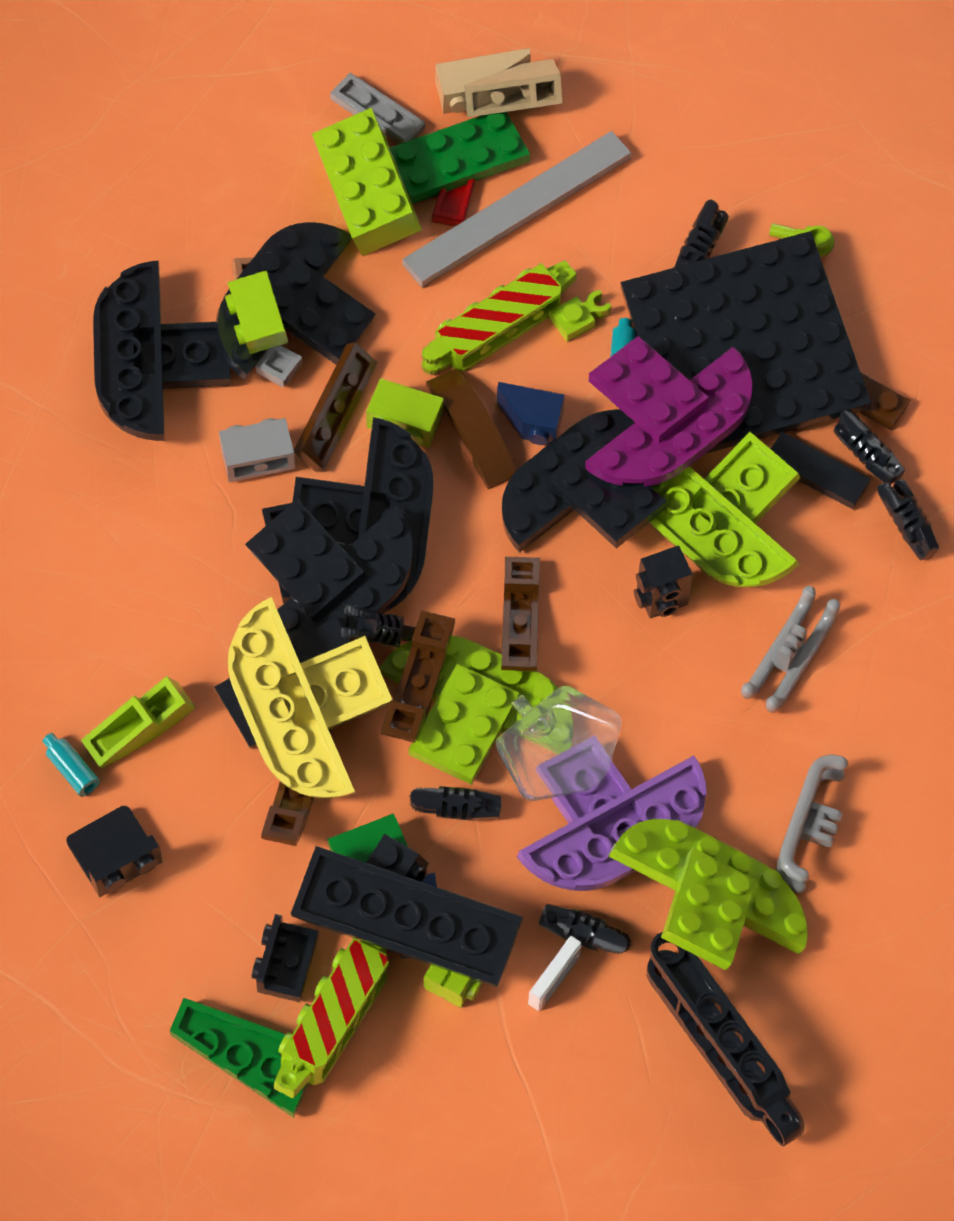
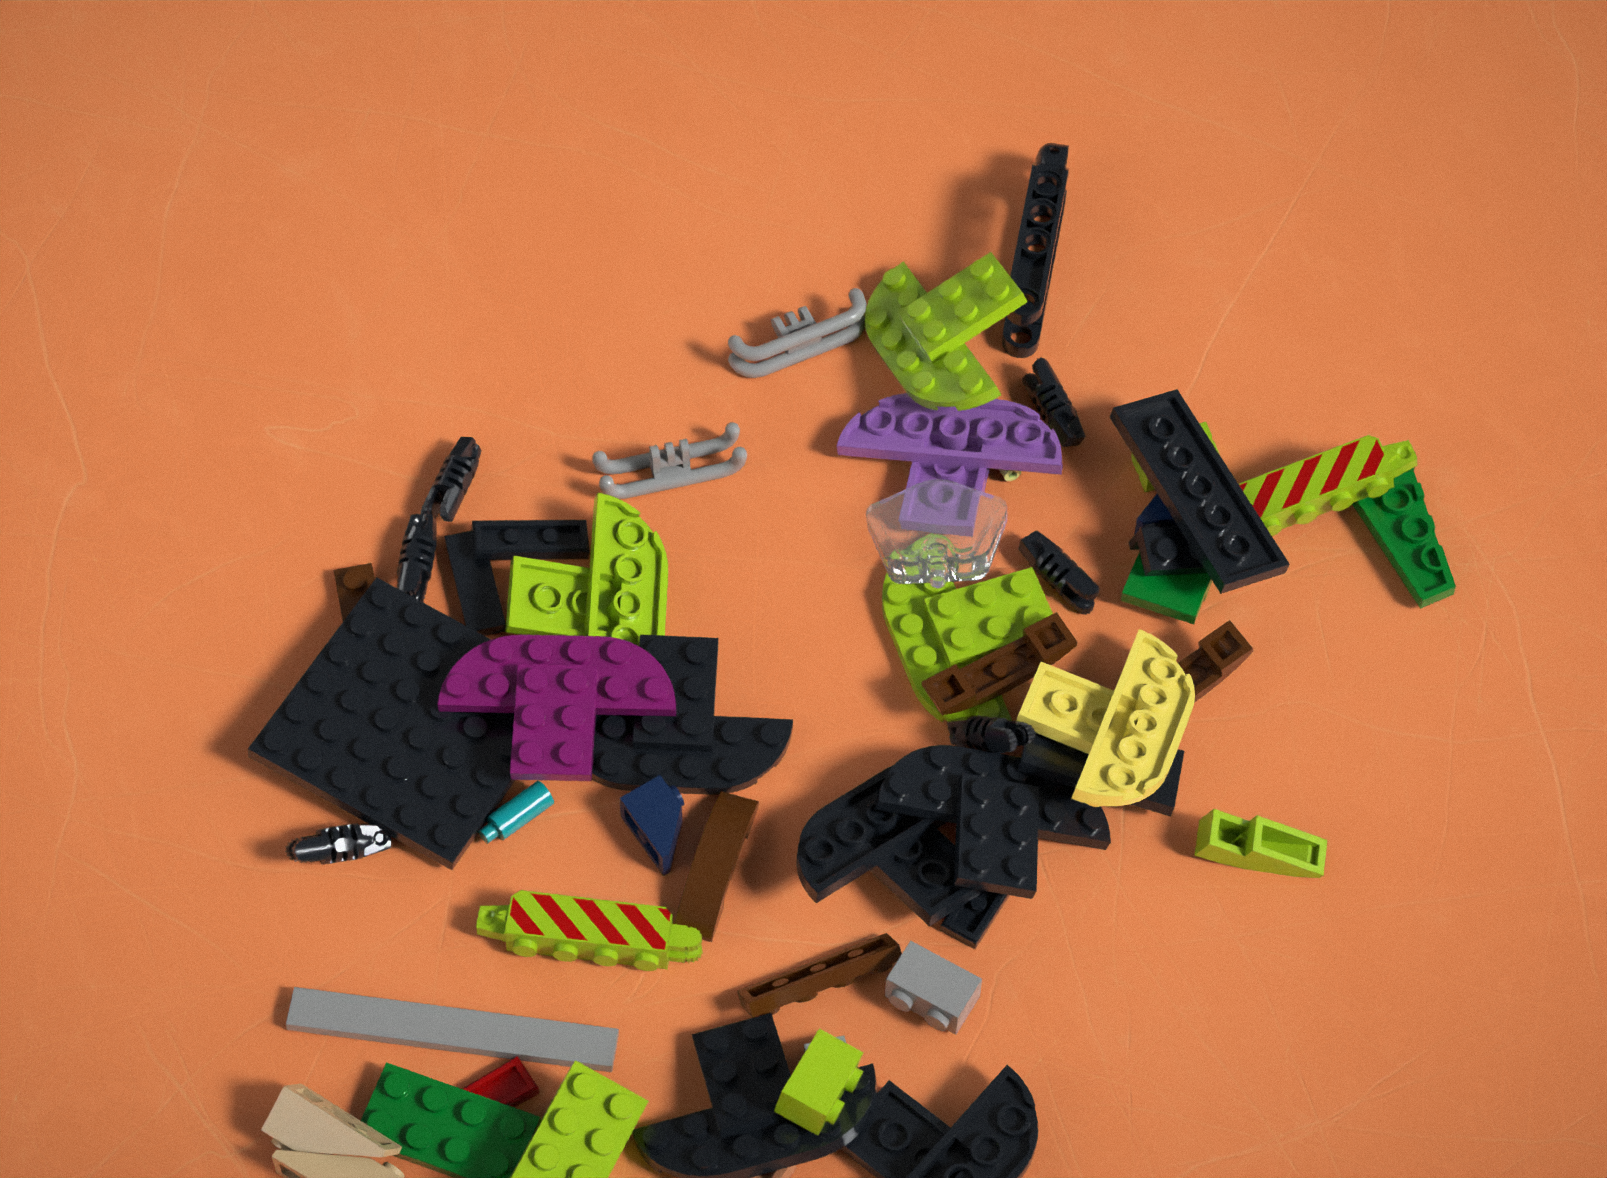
camera: 135 degrees left, 5 degrees down
(70, 765) = (1351, 860): teal cylinder -> none
(114, 850) = (1378, 754): black bracket -> none
(285, 959) = (1315, 566): black bracket -> none
(408, 408) = (766, 915): lime brick -> none
(520, 614) = (858, 663): reddish brown slope -> none
(555, 973) = (1109, 392): white tile -> none
(577, 317) = (511, 880): lime plate -> none
(663, 582) = (715, 579): black brick -> none
(818, 519) = (530, 539): none -> black tile
(822, 236) = (239, 768): lime plate -> none

